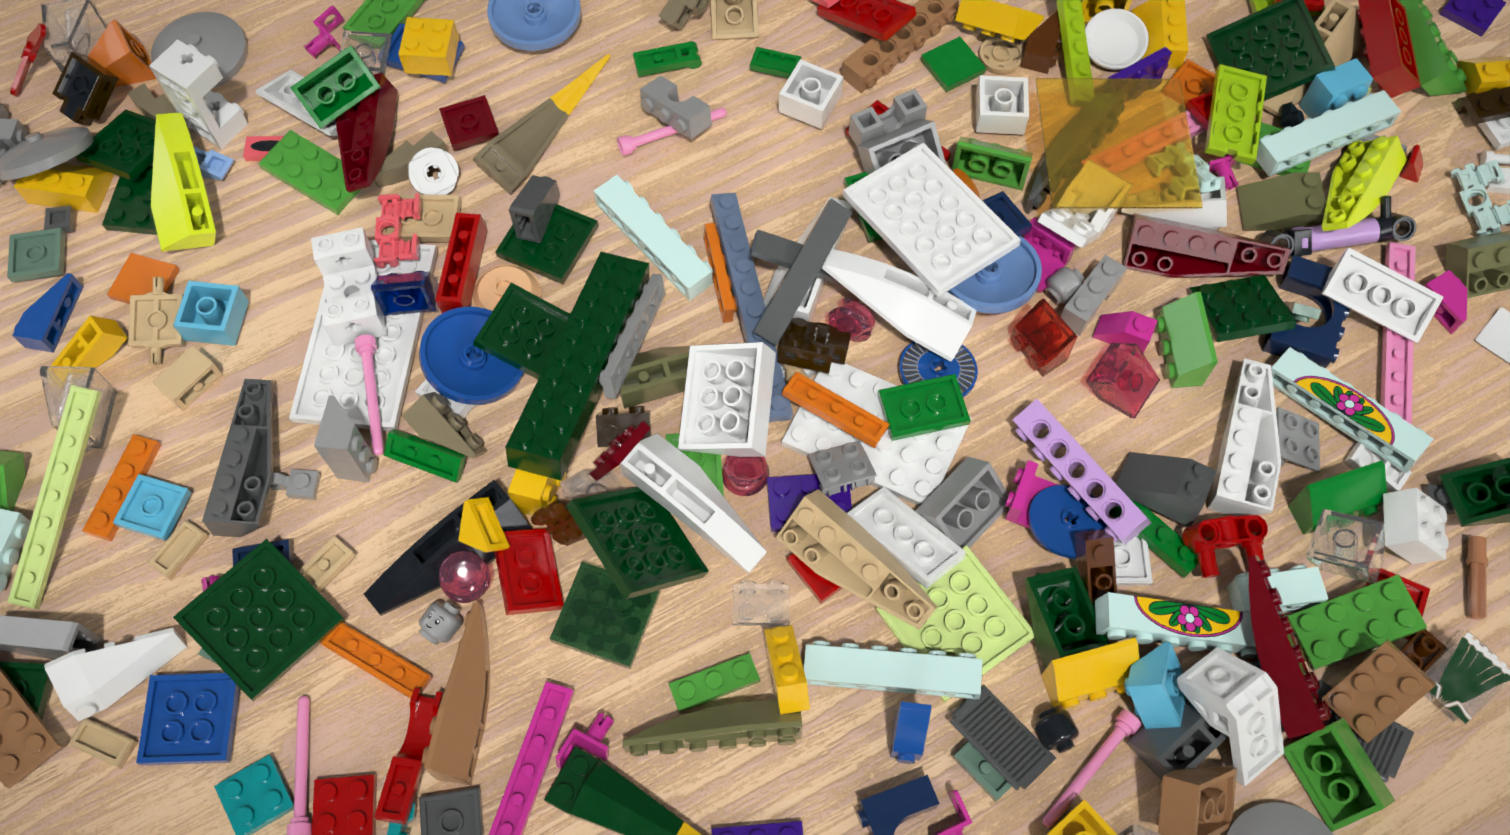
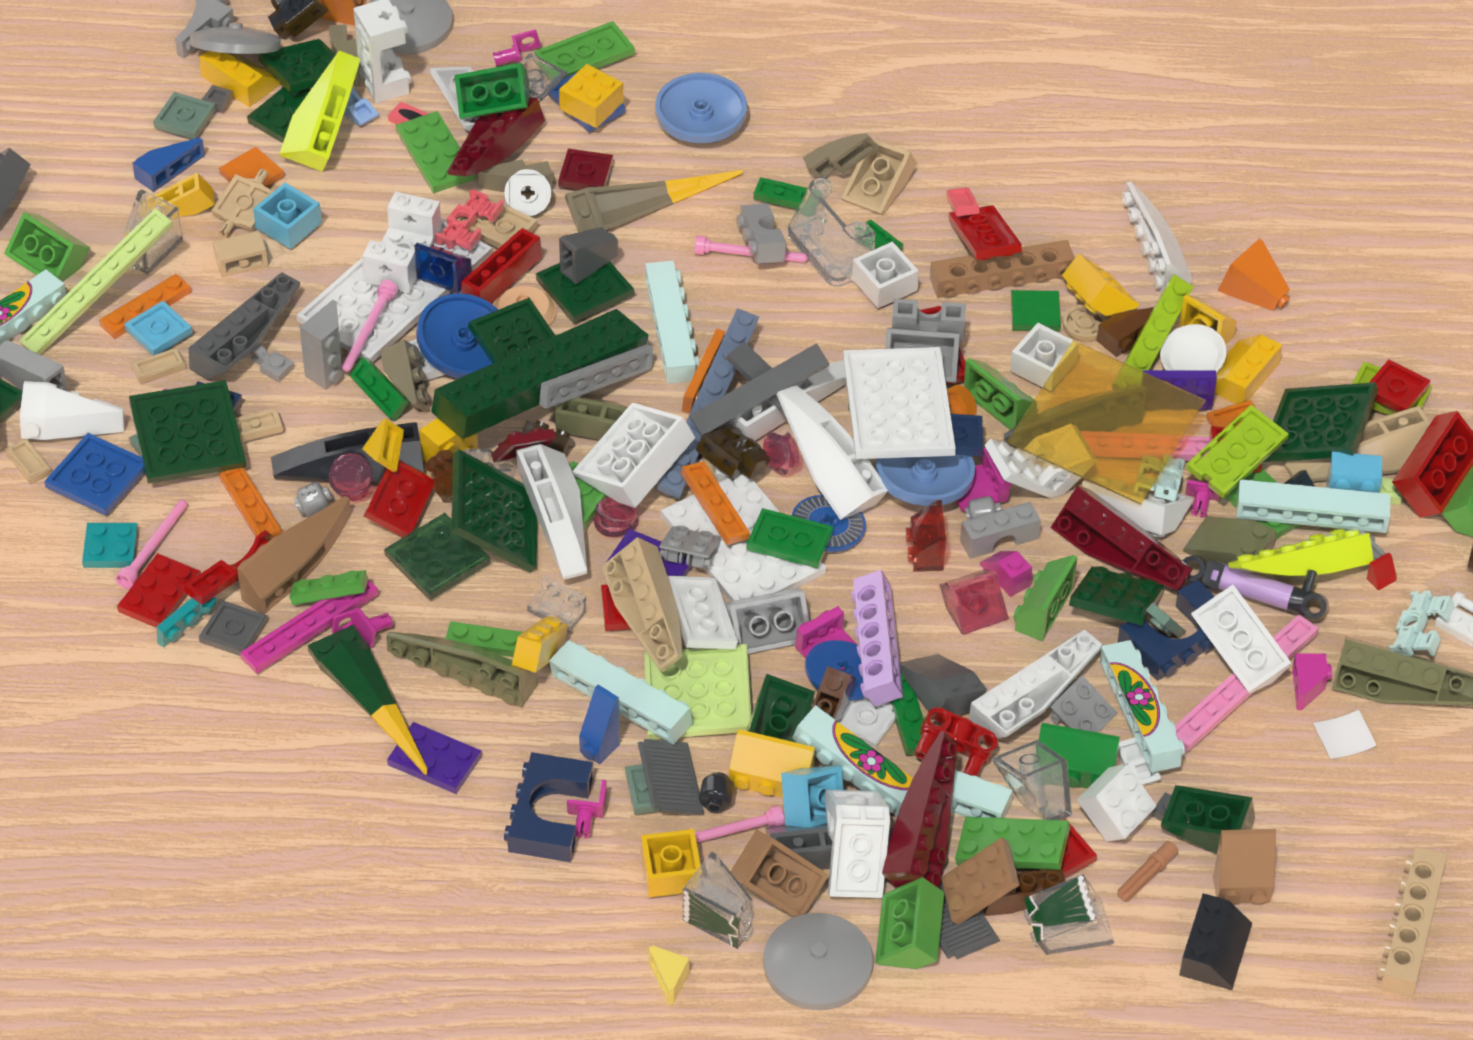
camera: 30 degrees right, 15 degrees down
(524, 719) = (328, 587): none -> bright green plate
(737, 83) = (825, 237): none -> clear windscreen

